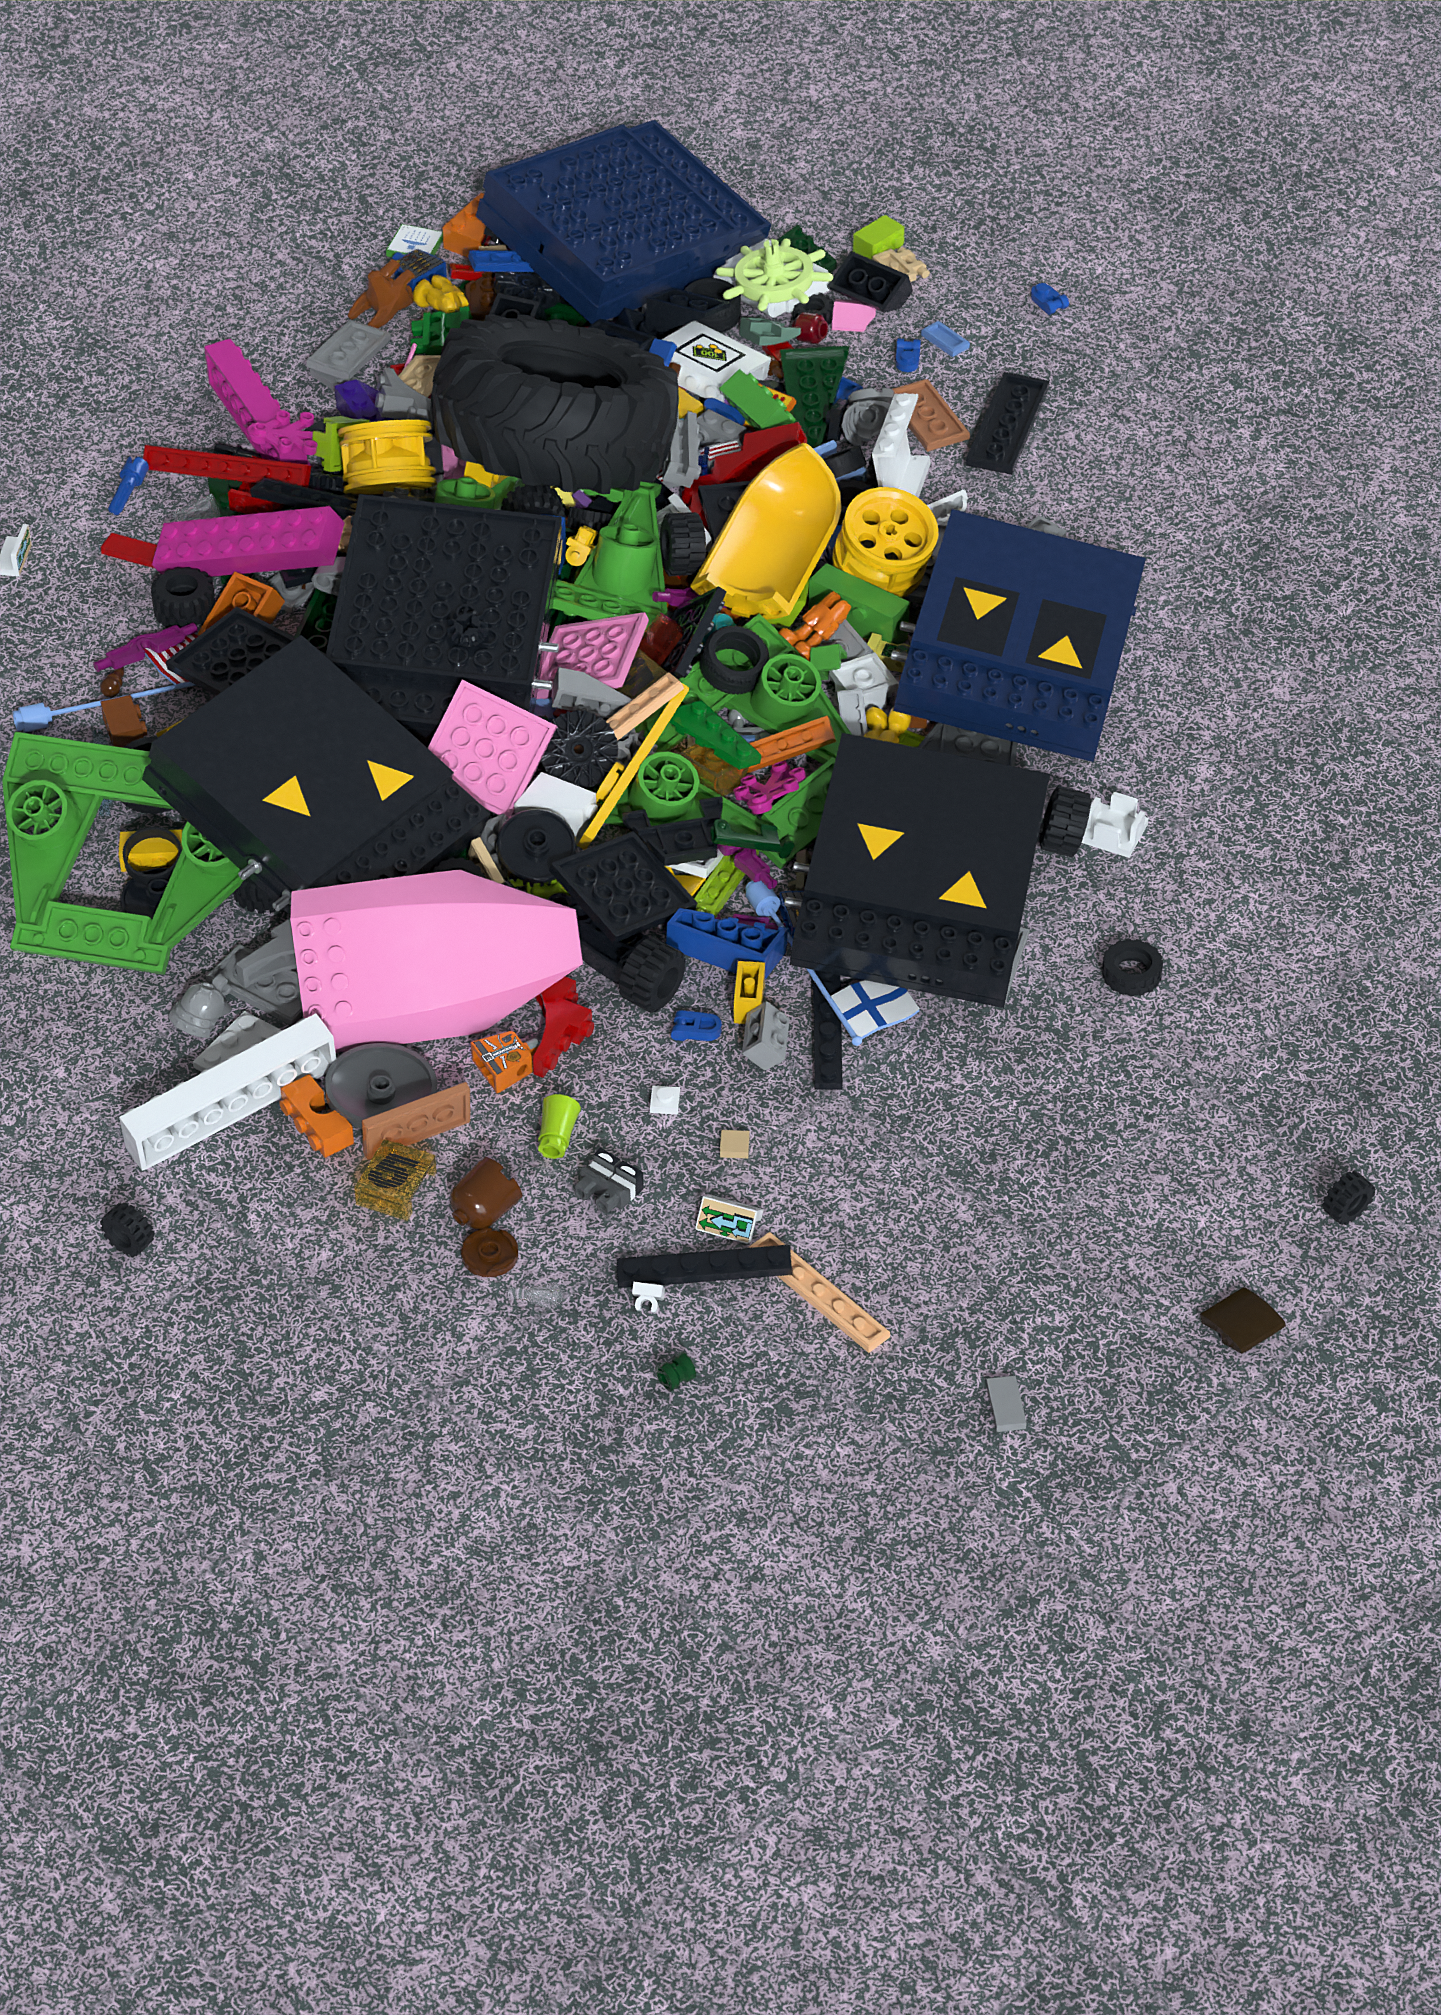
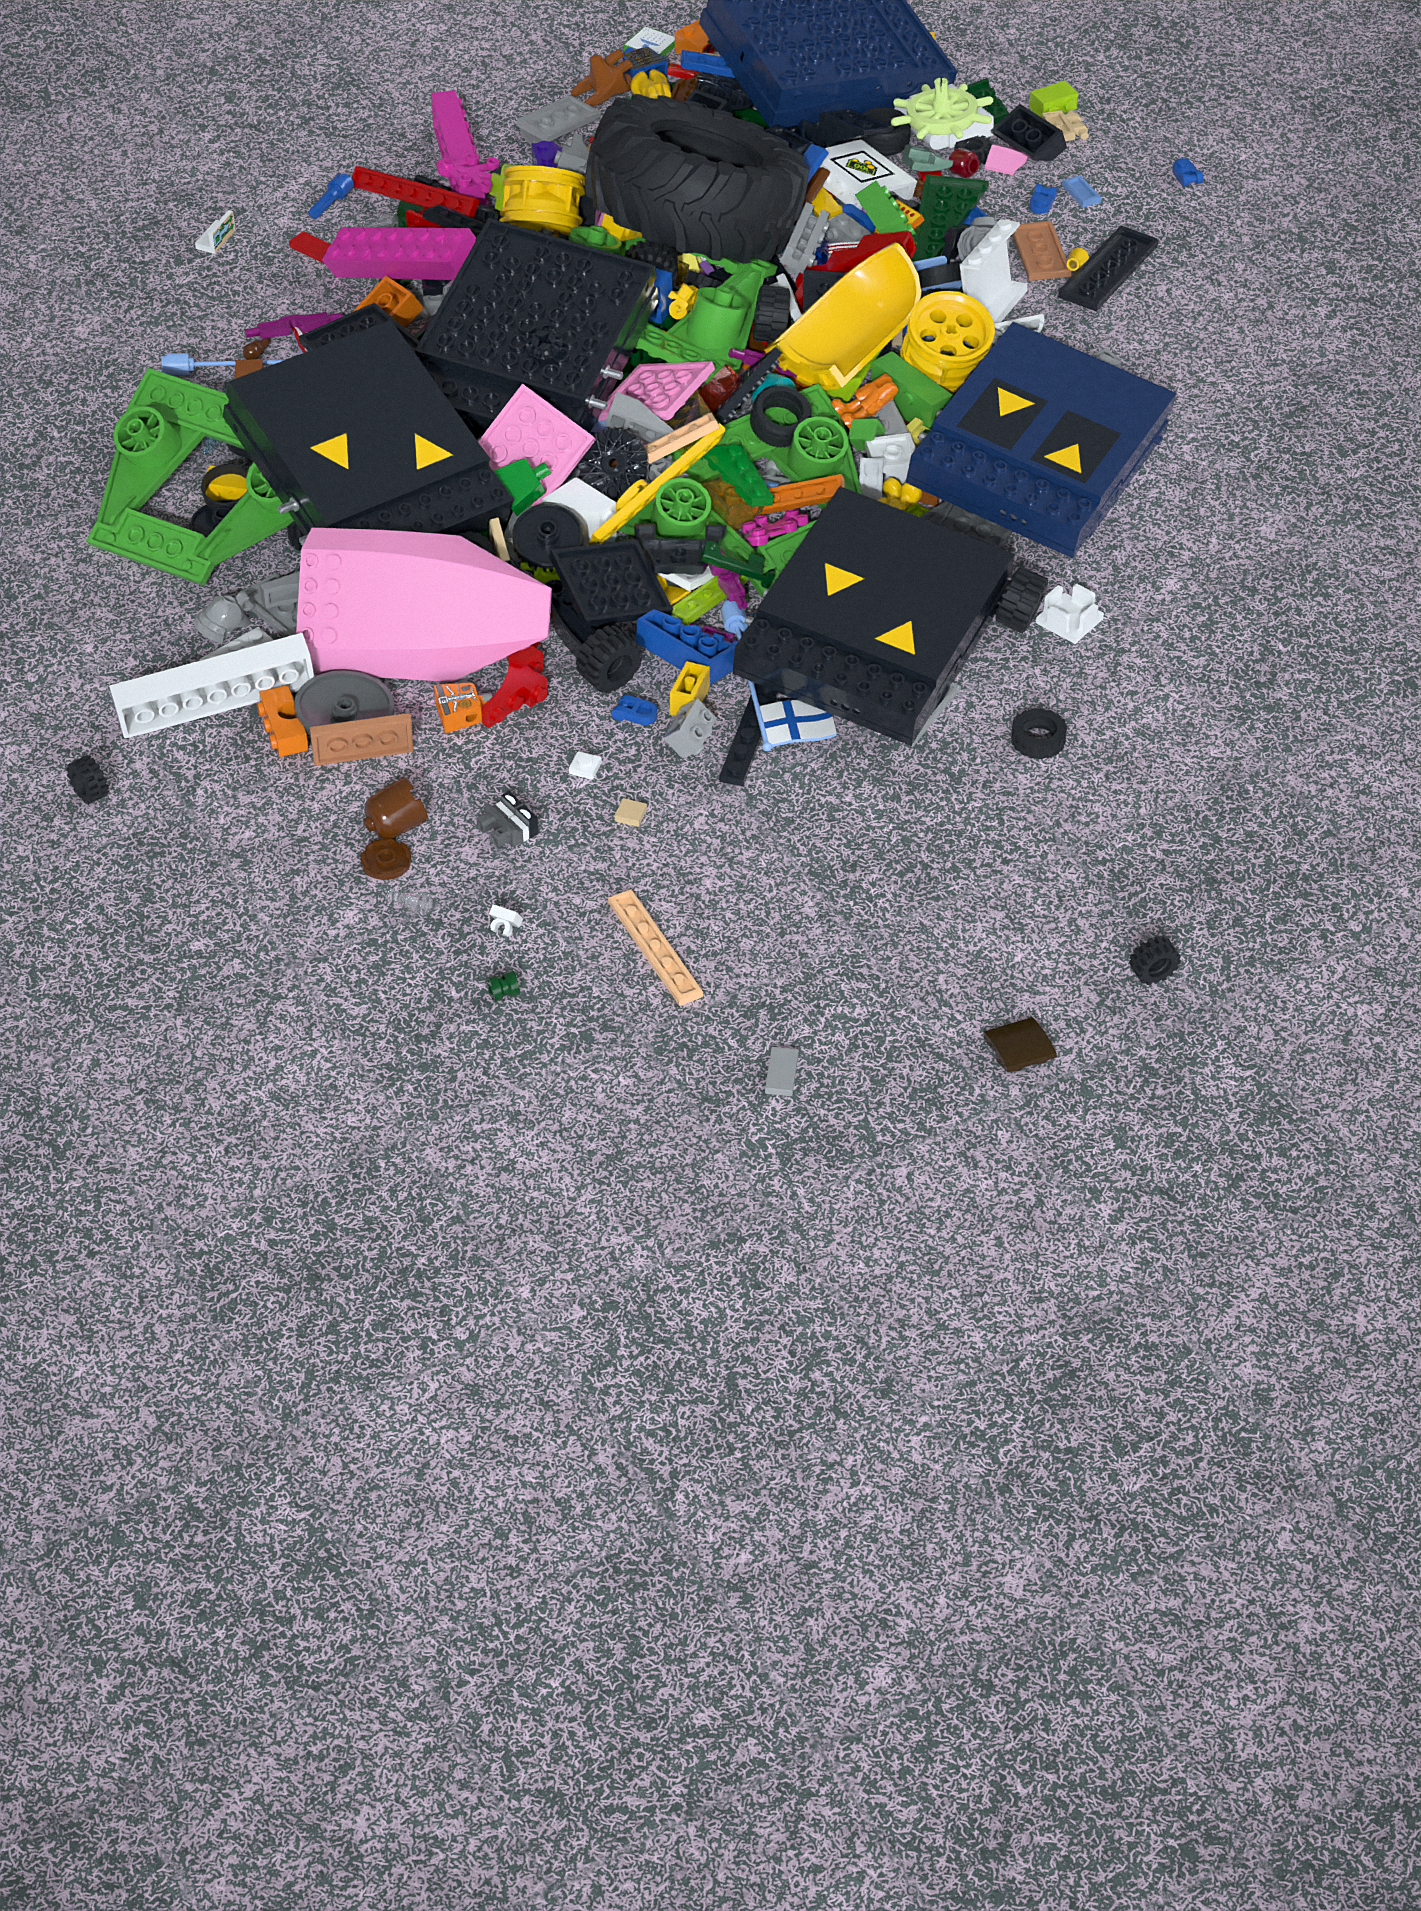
camera: 15 degrees right, 0 degrees up
(182, 597) = (338, 289): black tyre -> none
(393, 1179) = (325, 782): clear yellow panel -> none
(491, 789) = (523, 483): none -> green torso
(557, 1124) = (482, 766): lime plant -> none
(705, 1266) = (565, 905): black plate -> none
(728, 1218) = (599, 871): panel -> none
(972, 418) = (1076, 258): none -> yellow cone

